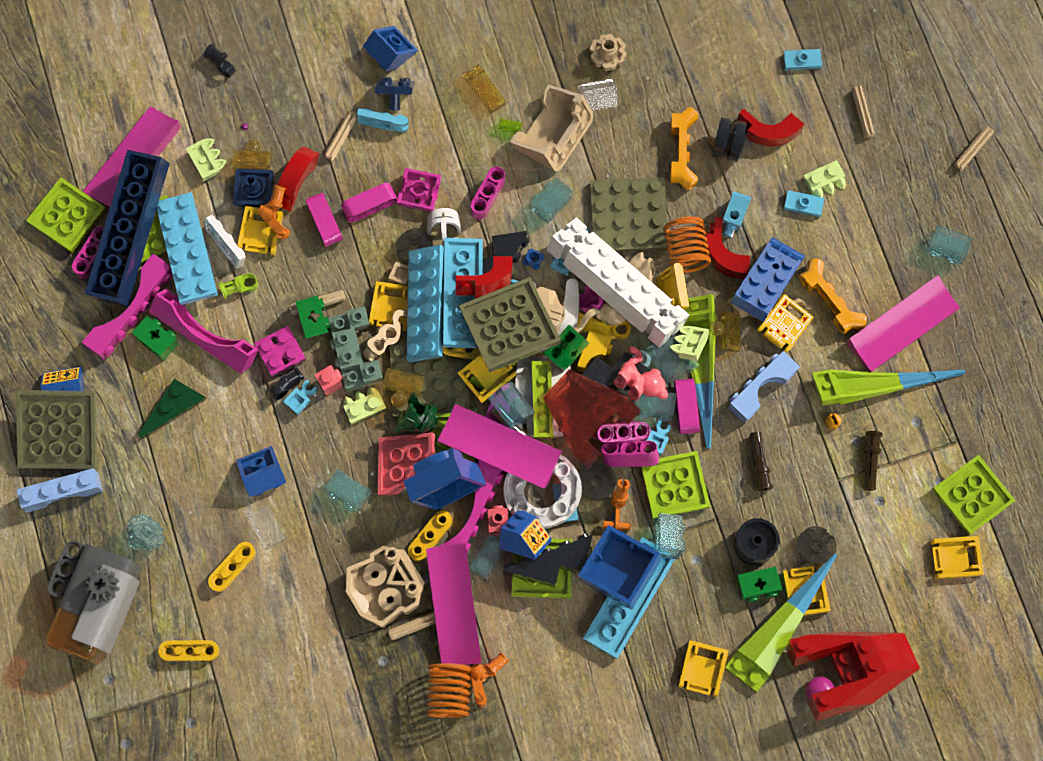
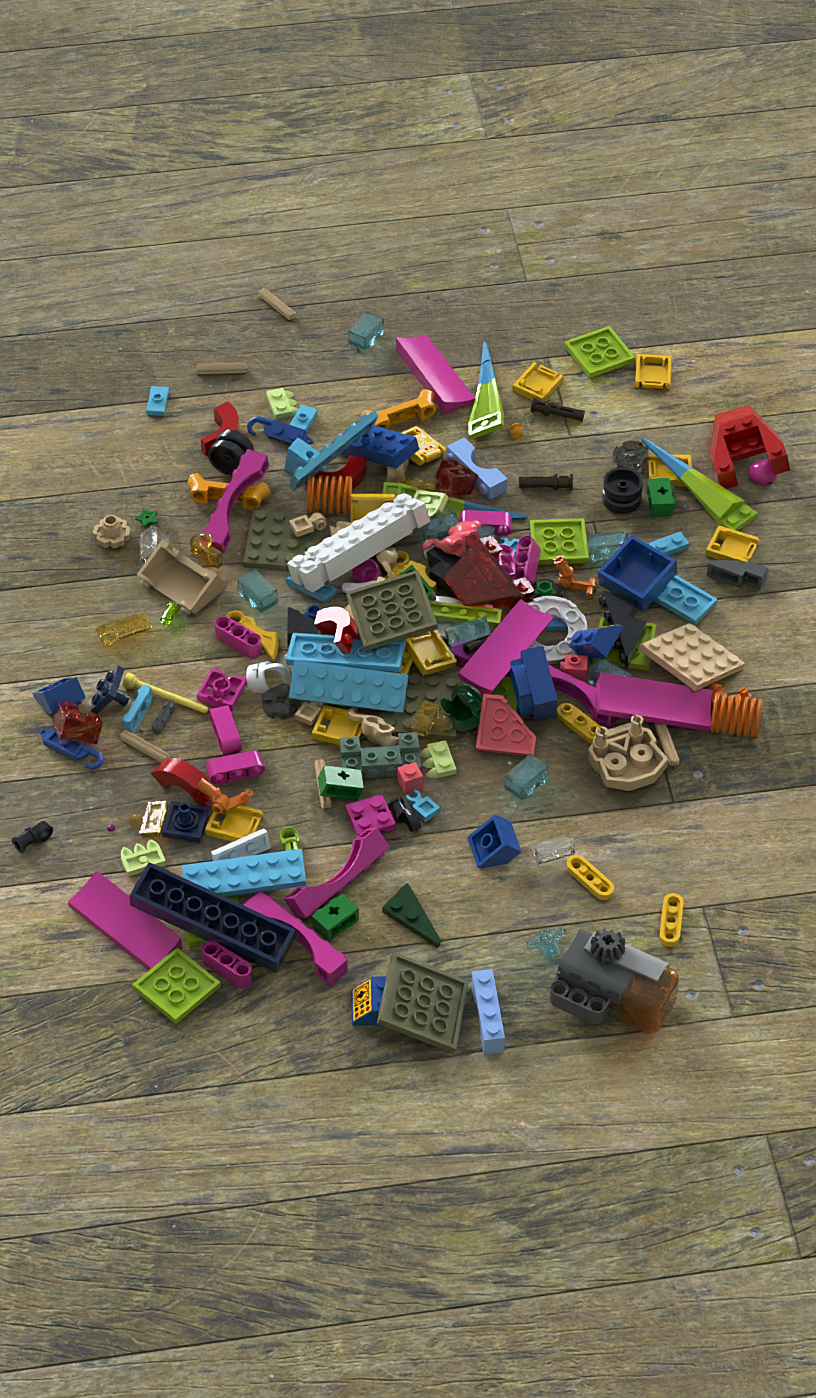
camera: 80 degrees left, 25 degrees down
(329, 71) = (71, 749): none -> blue plate
(344, 68) = (76, 726): none -> clear red brick
(379, 145) = (163, 717): none -> dark grey axle
(418, 107) = (131, 681): none -> light yellow piece
(496, 219) = (268, 639): none -> yellow piece
(527, 638) = (692, 656): none -> tan plate
(597, 137) = (202, 548): none -> clear yellow plate
(598, 482) = (544, 588): none -> green plate
(624, 149) = (251, 470): none -> dark pink arch
(635, 85) = (147, 518): none -> green plate
(641, 226) = (303, 525): none -> tan plate
(661, 679) = (738, 573): none -> dark grey slope
(690, 596) = (671, 544): none -> medium azure hinge
(729, 231) = (330, 452): none -> medium azure plate
(737, 368) = (455, 478): none -> clear red brick
(780, 185) = (279, 430): none -> blue plate
(914, 437) = (537, 383): none -> yellow container

